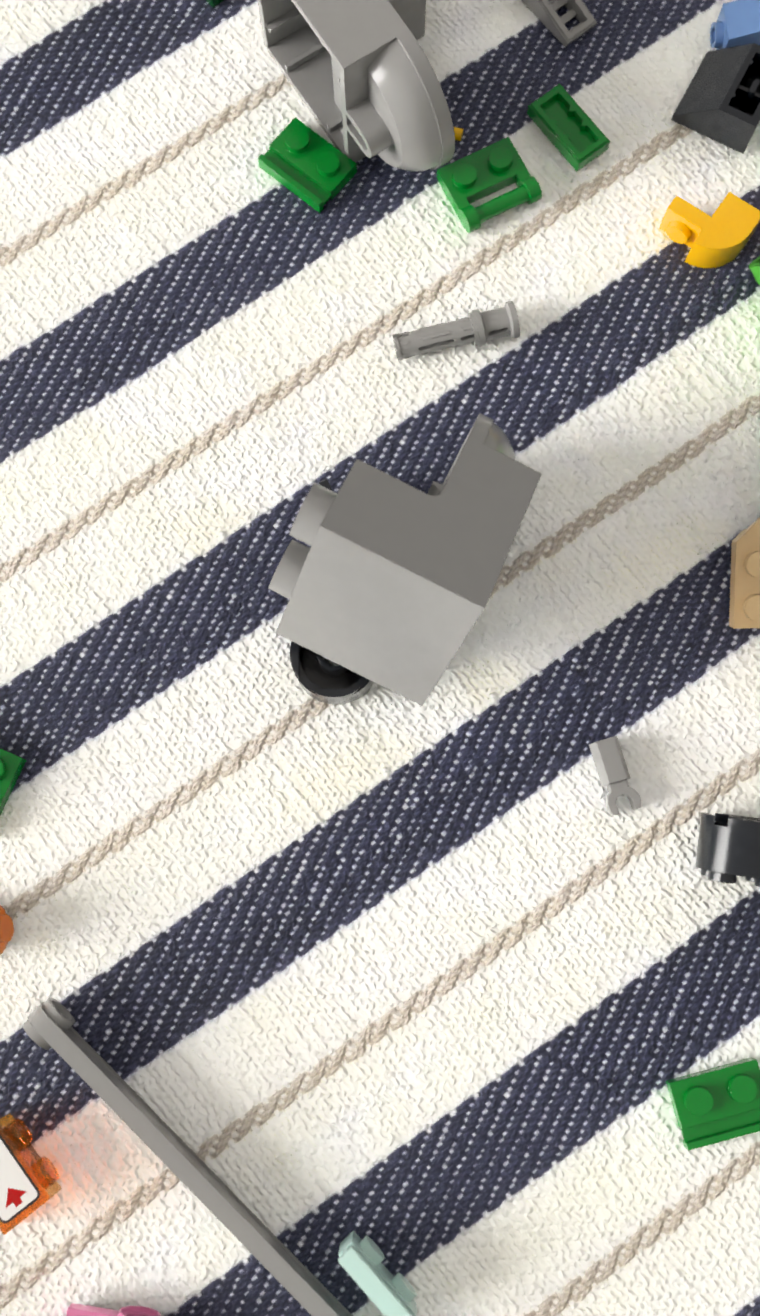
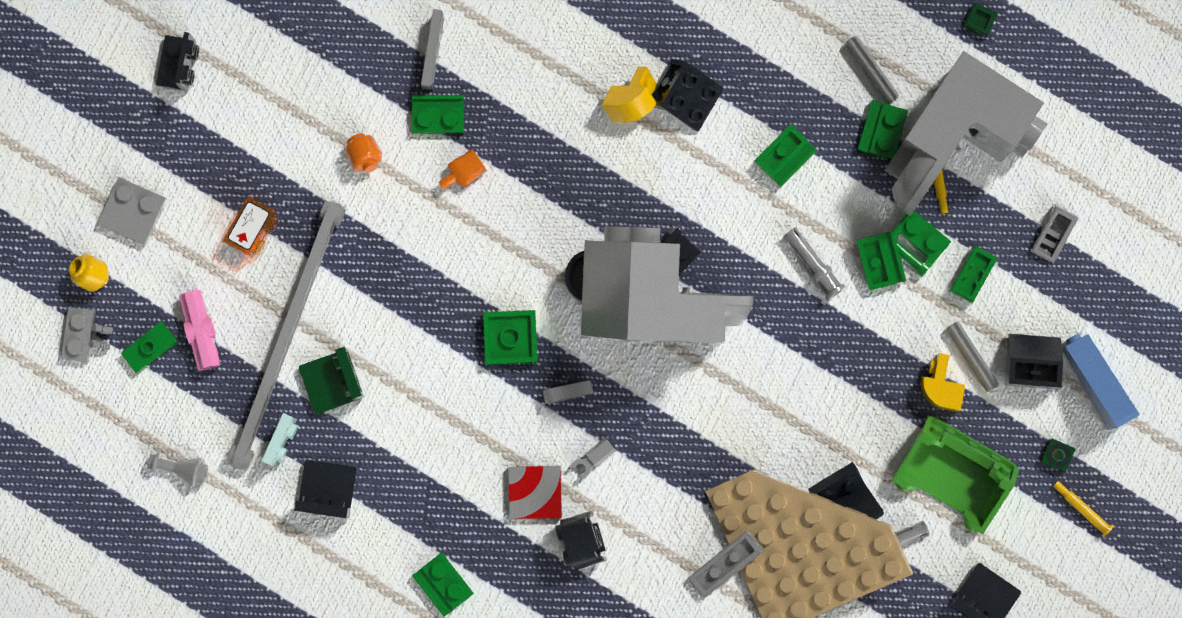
camera: 70 degrees right, 5 degrees up
(80, 783) = (463, 170): none -> orange piece
(95, 484) = (631, 102): none -> yellow brick
(122, 405) = (686, 93): none -> black bracket
(214, 142) = (872, 69): none -> light grey axle
(282, 306) = (785, 155): none -> green plate
(317, 1146) = (331, 381): none -> dark green bracket
(372, 823) = (510, 337): none -> green plate
(494, 236) = (881, 260): none -> green plate
(494, 1236) = (326, 489): none -> black bracket
(496, 771) = (567, 392): none -> light grey beam
(631, 890) = (535, 492): none -> tile
(684, 177) = (972, 356): none -> light grey axle

